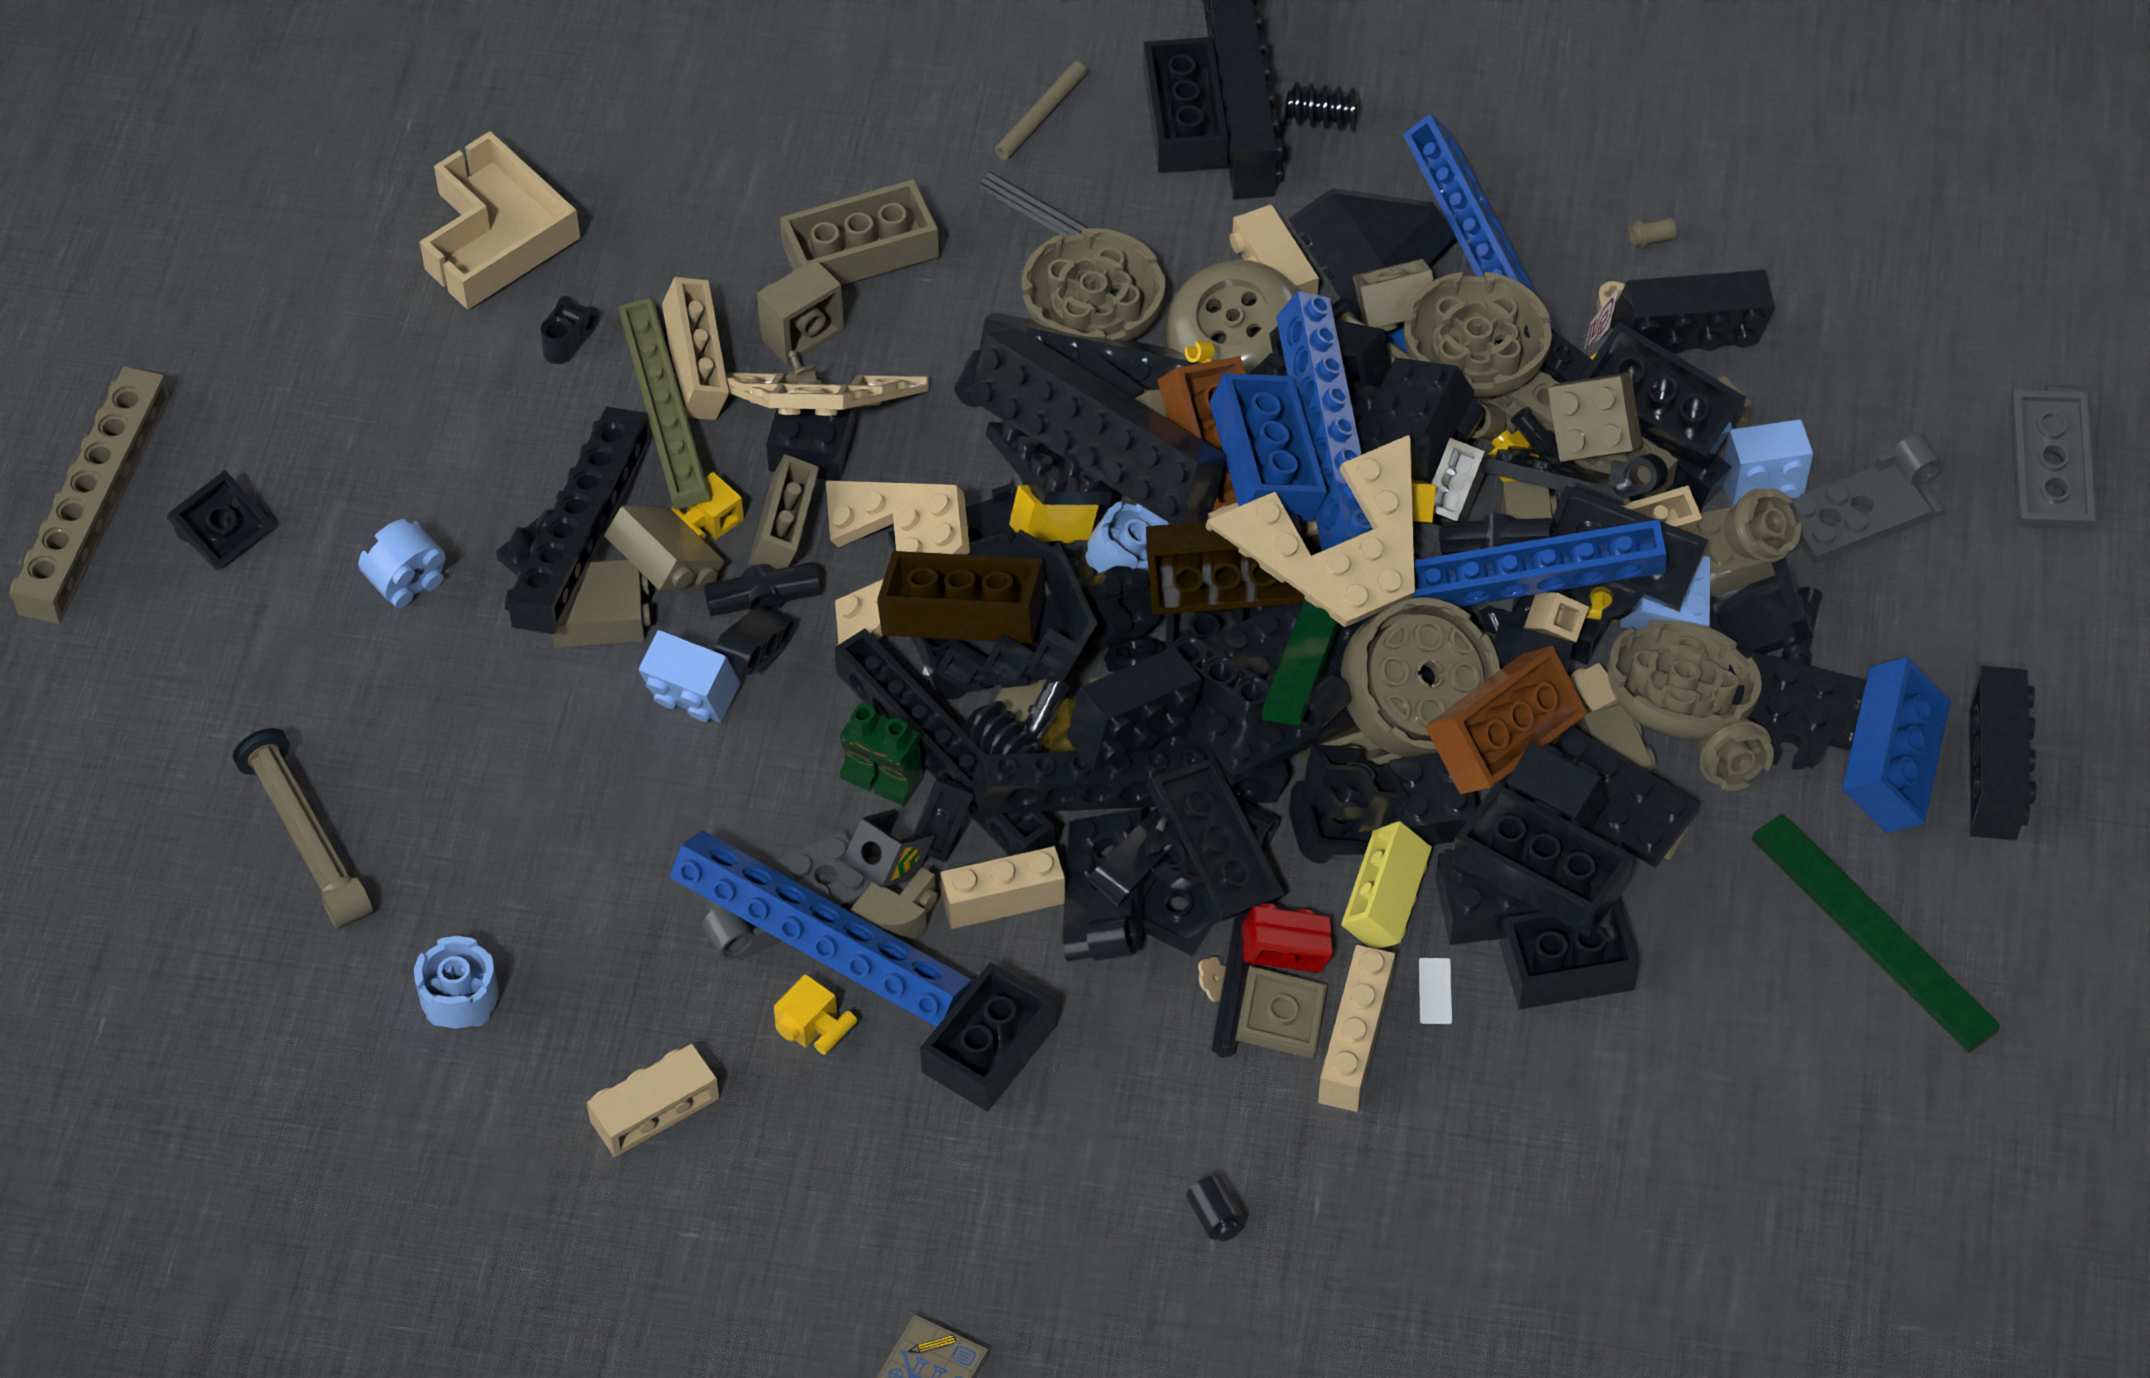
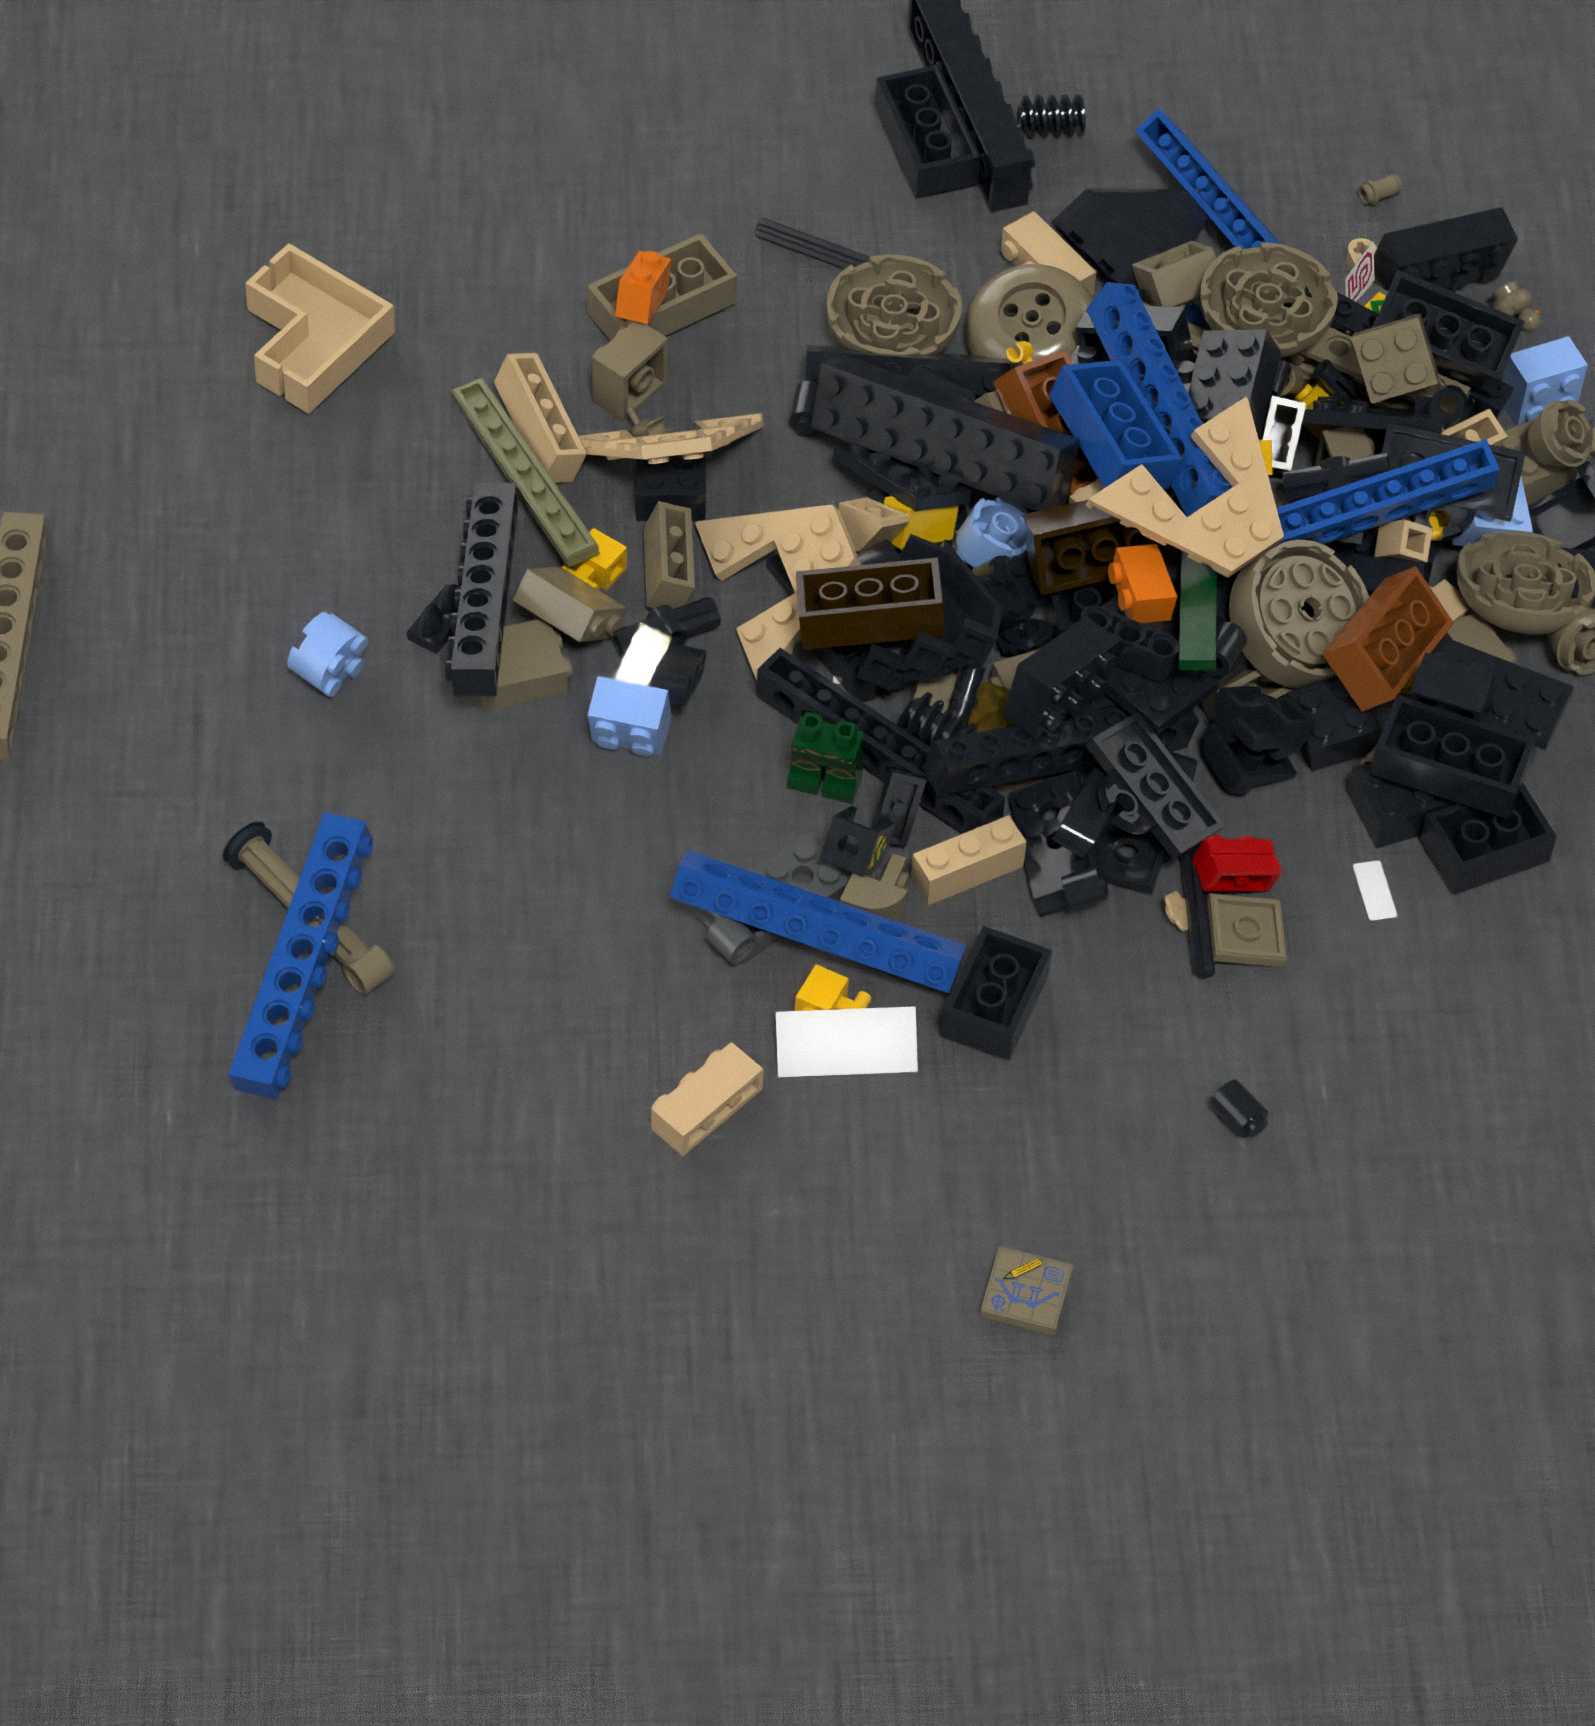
camera: 15 degrees left, 0 degrees up
(219, 520) = (138, 641): black slope -> none
(254, 887) = (334, 837): none -> blue brick
(456, 983) = (496, 1024): light blue brick -> none
(567, 330) = (410, 419): black piece -> none
(724, 611) = (643, 655): none -> tile
(817, 1063) = (846, 1041): none -> white sticker
(828, 227) = (643, 287): none -> orange brick
(995, 509) = (871, 522): none -> tan slope
(1040, 110) = (791, 155): dark tan piece -> none
(1255, 620) = (1142, 583): none -> orange brick
(1356, 1028) = (1319, 932): tan brick -> none
(1386, 886) = (1311, 804): light yellow brick -> none
(1763, 372) = (1514, 301): none -> dark tan animal

